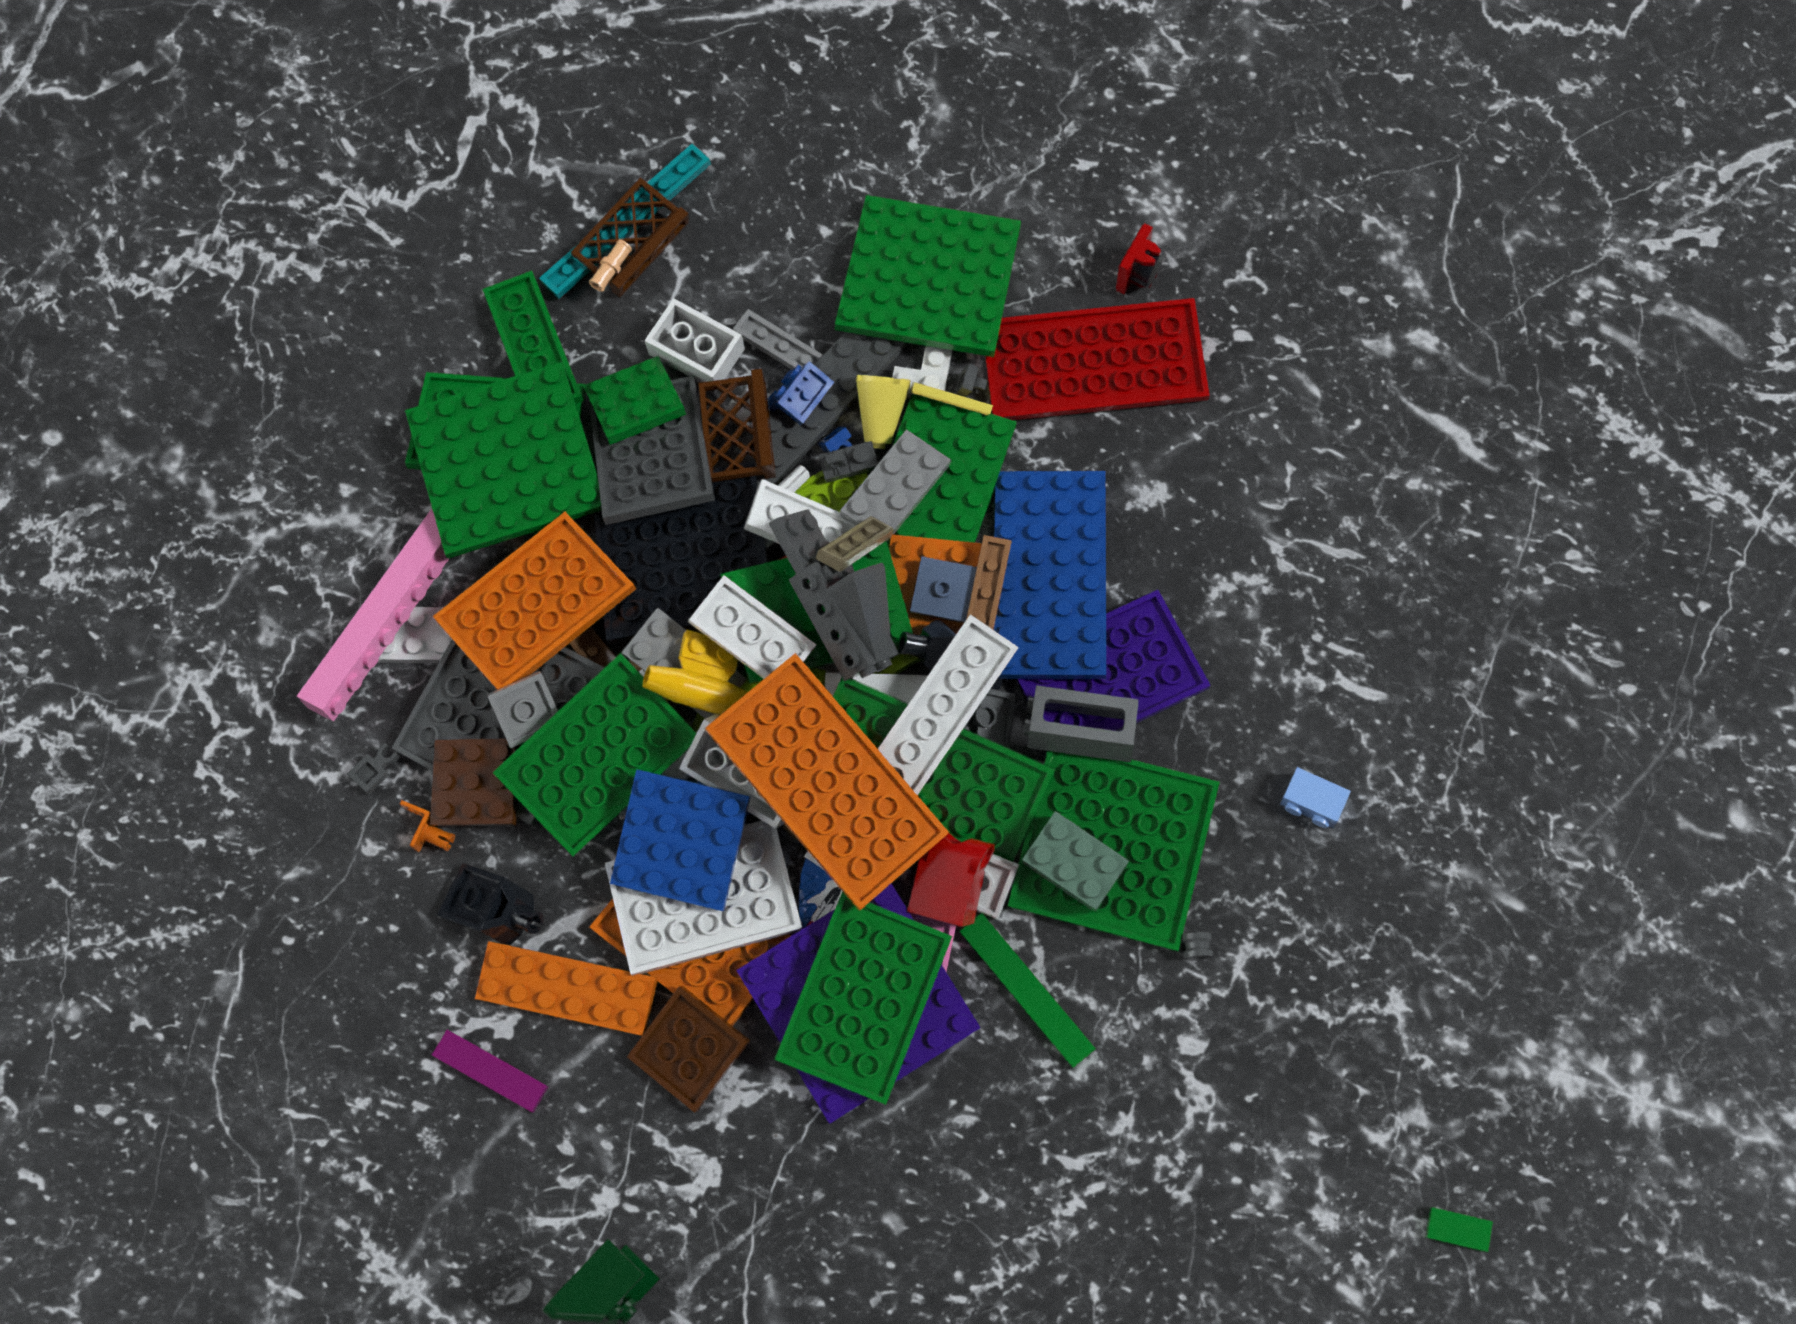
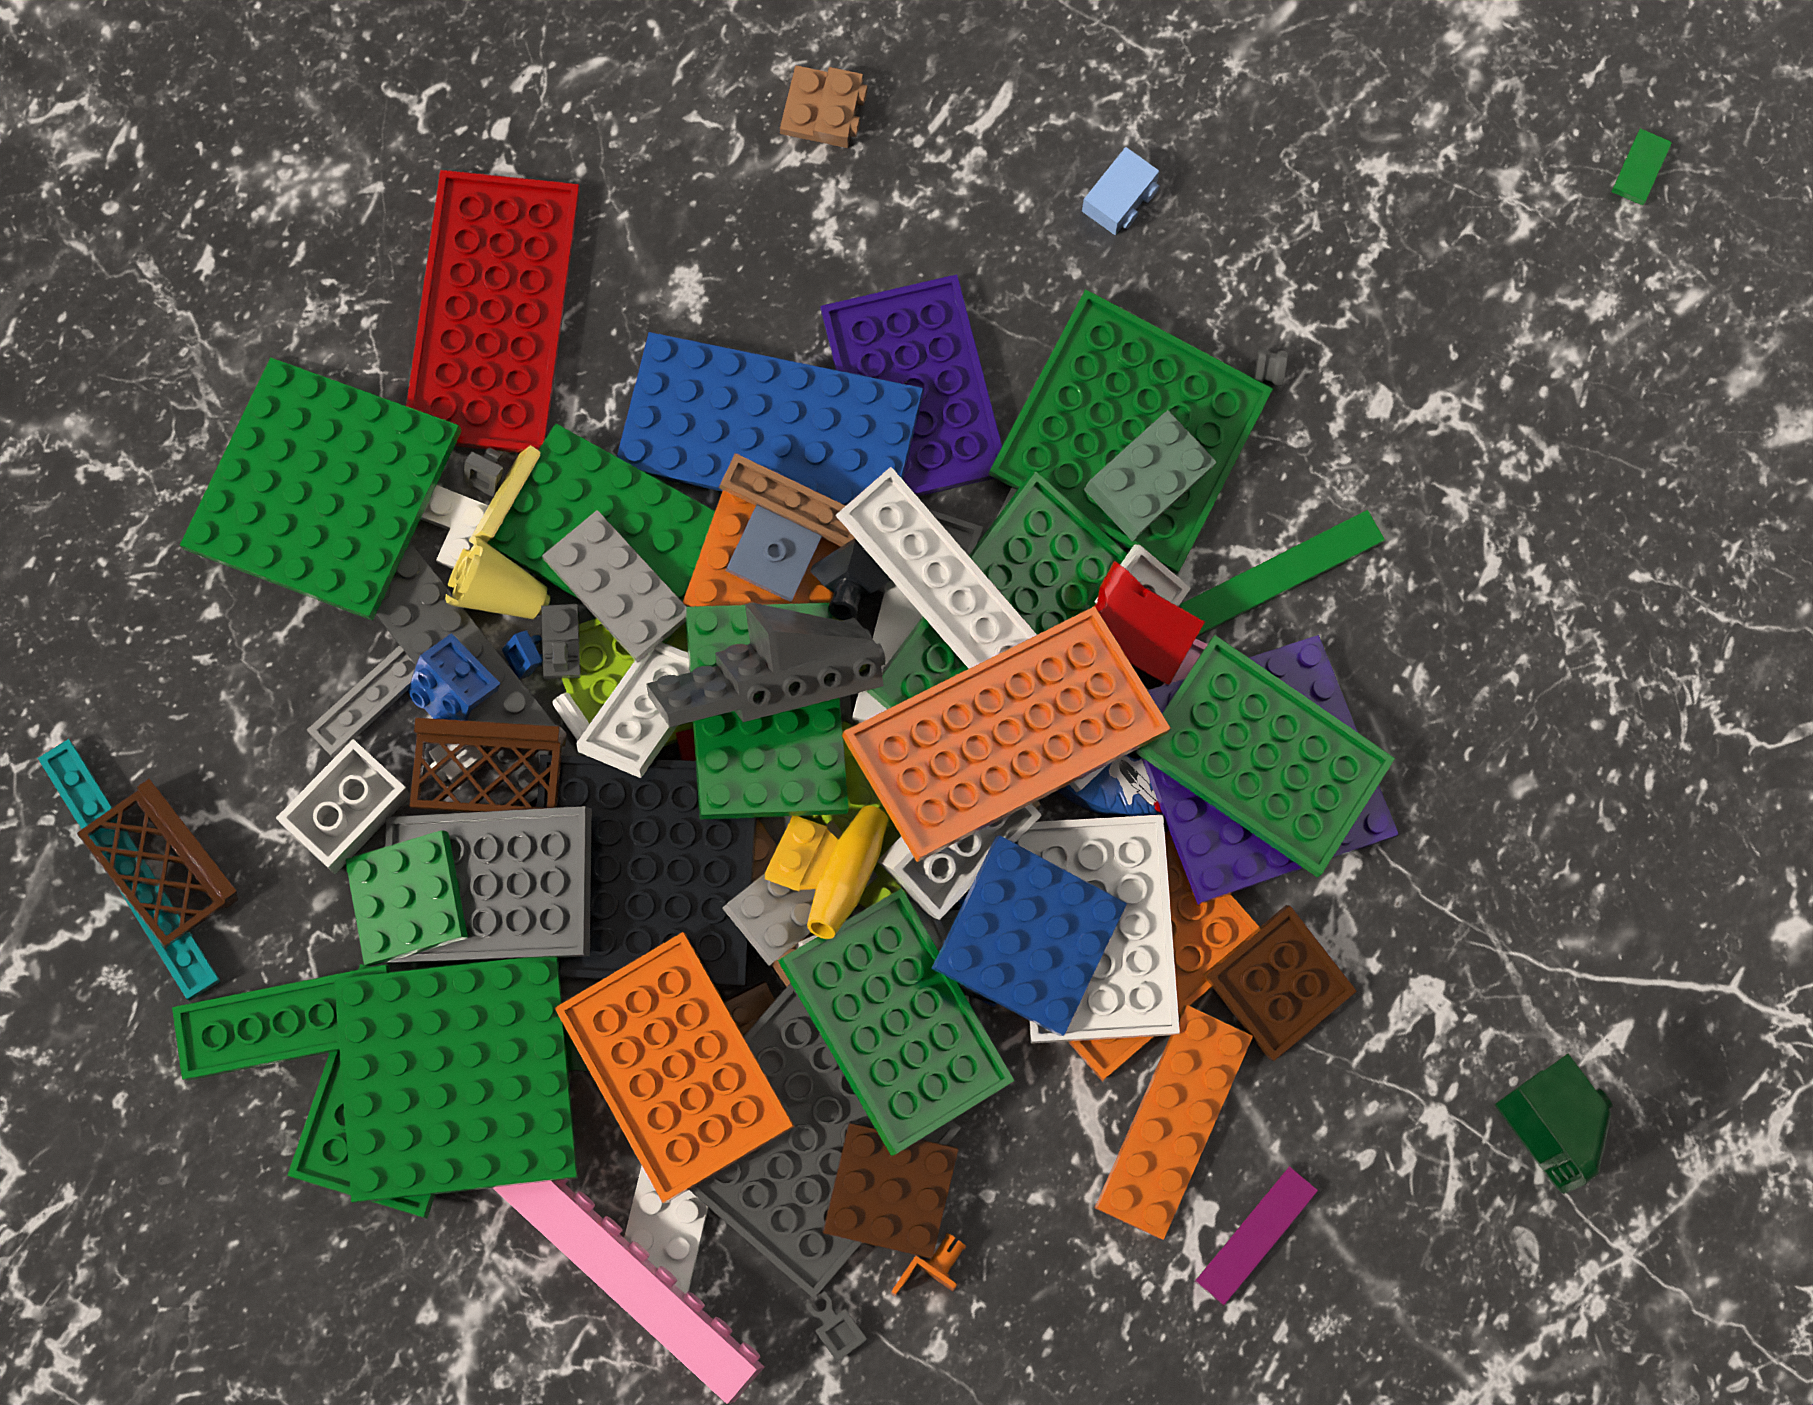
camera: 85 degrees left, 5 degrees up
(490, 905) = (1050, 1200): black plate -> none
(522, 708) = (819, 1100): light grey plate -> none
(610, 265) = (201, 894): light nougat pin -> none
(748, 629) = (790, 789): white plate -> none
(854, 543) = (706, 636): dark tan tile -> none
(1080, 739) = (1003, 435): dark grey piece -> none
(1140, 262) = (377, 220): red piece -> none
(1324, 559) = (824, 105): none -> medium nougat plate

